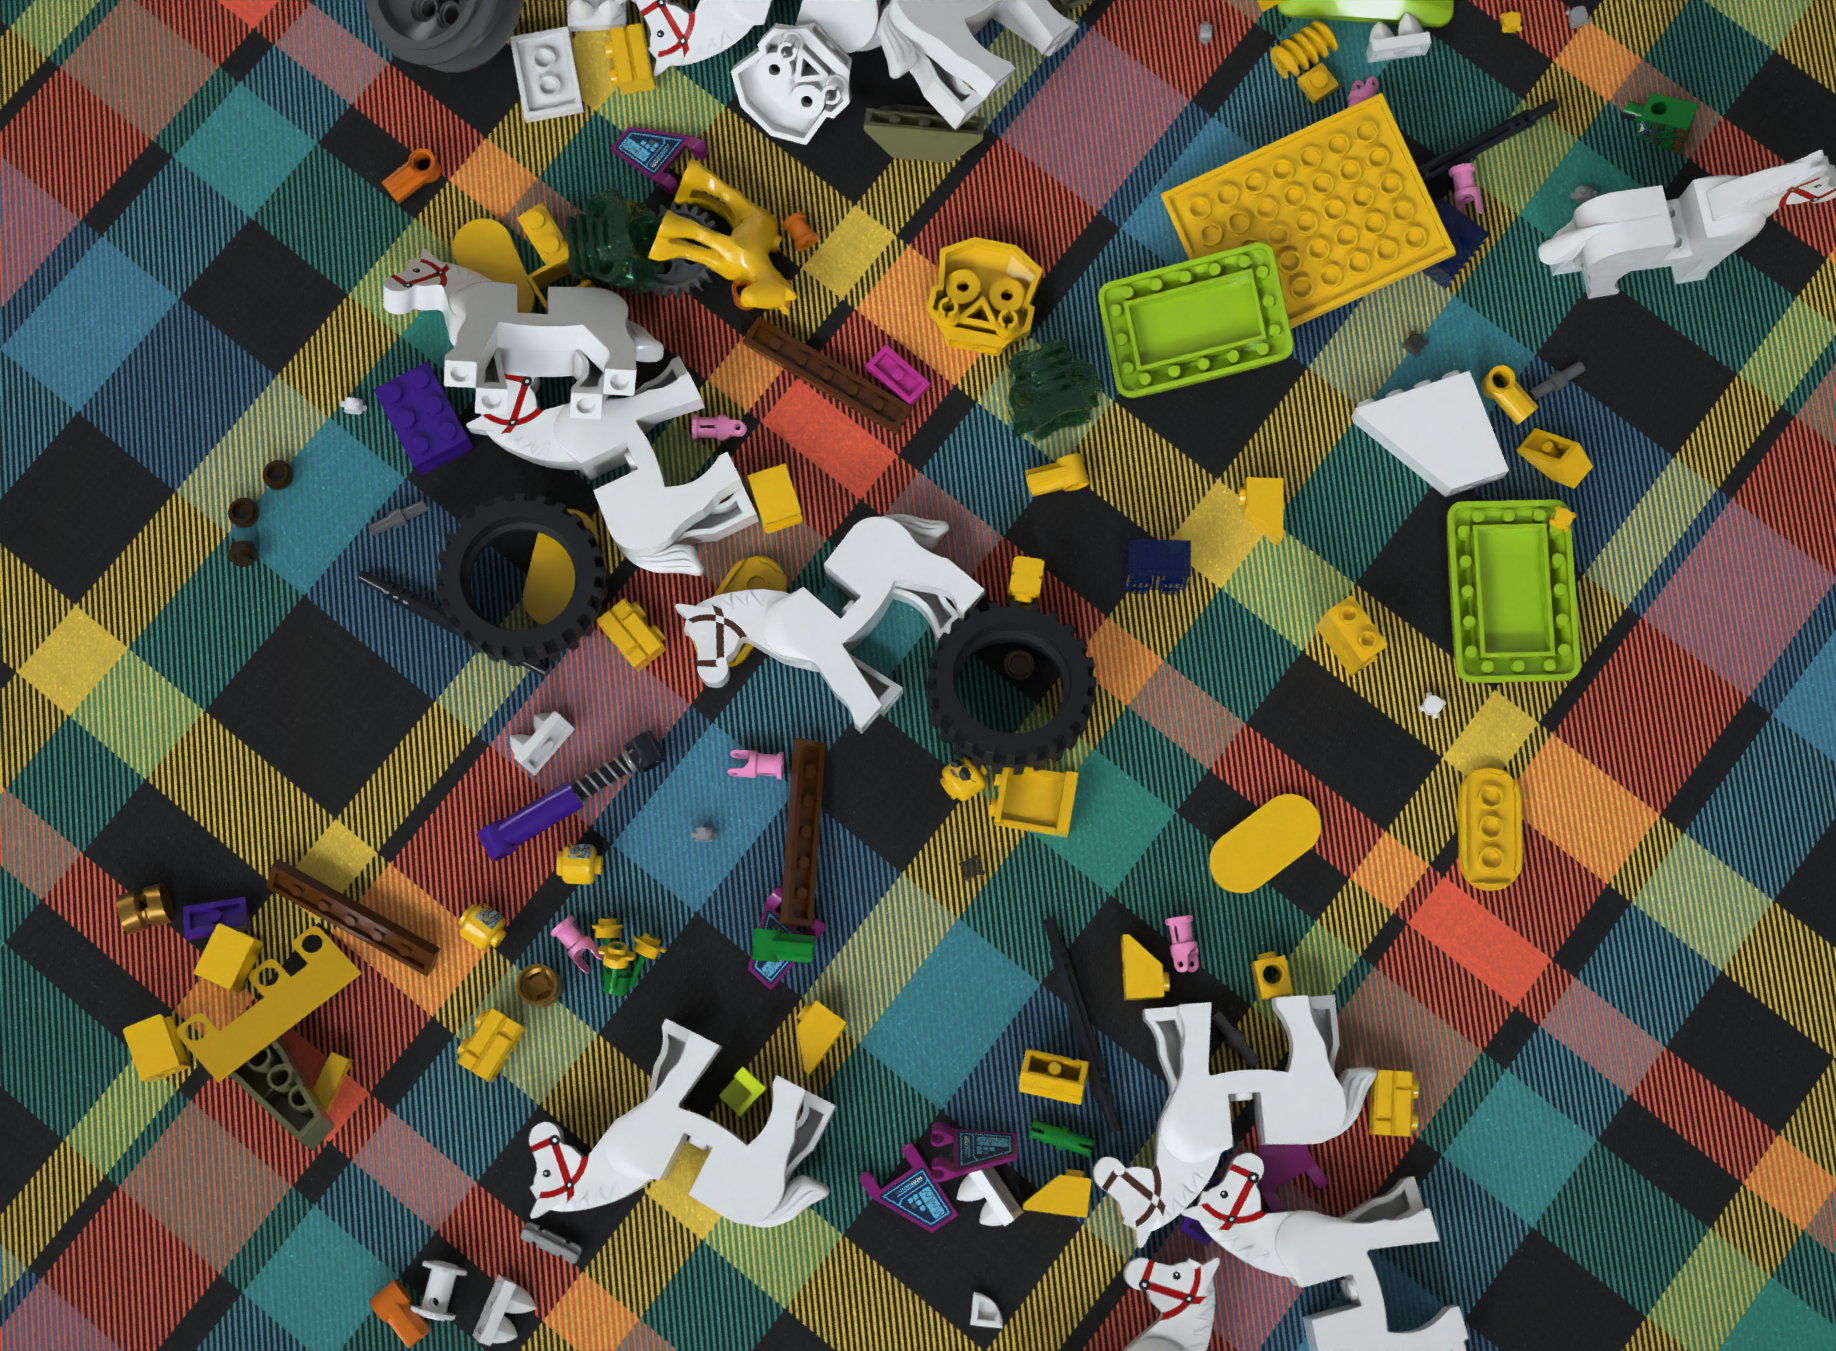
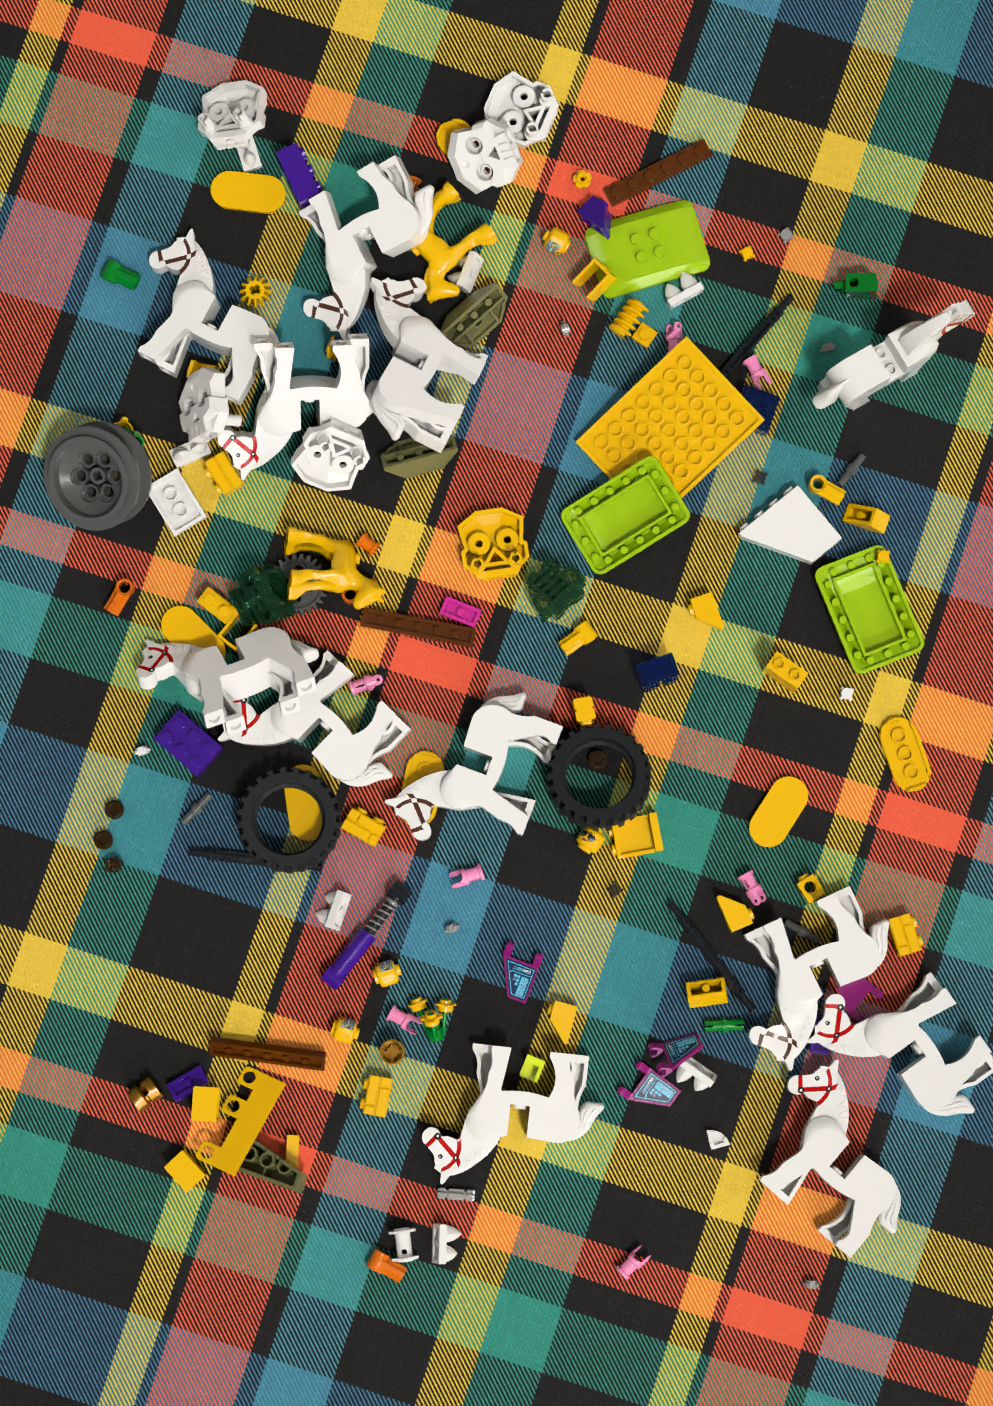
camera: 20 degrees left, 5 degrees up
(655, 152) = (260, 526): flag -> none
(775, 498) = (417, 714): yellow piece -> none
(777, 946) = (518, 977): green piece -> none
(802, 833) = (509, 906): reddish brown plate -> none
(1062, 1195) = (736, 1057): yellow slope -> none

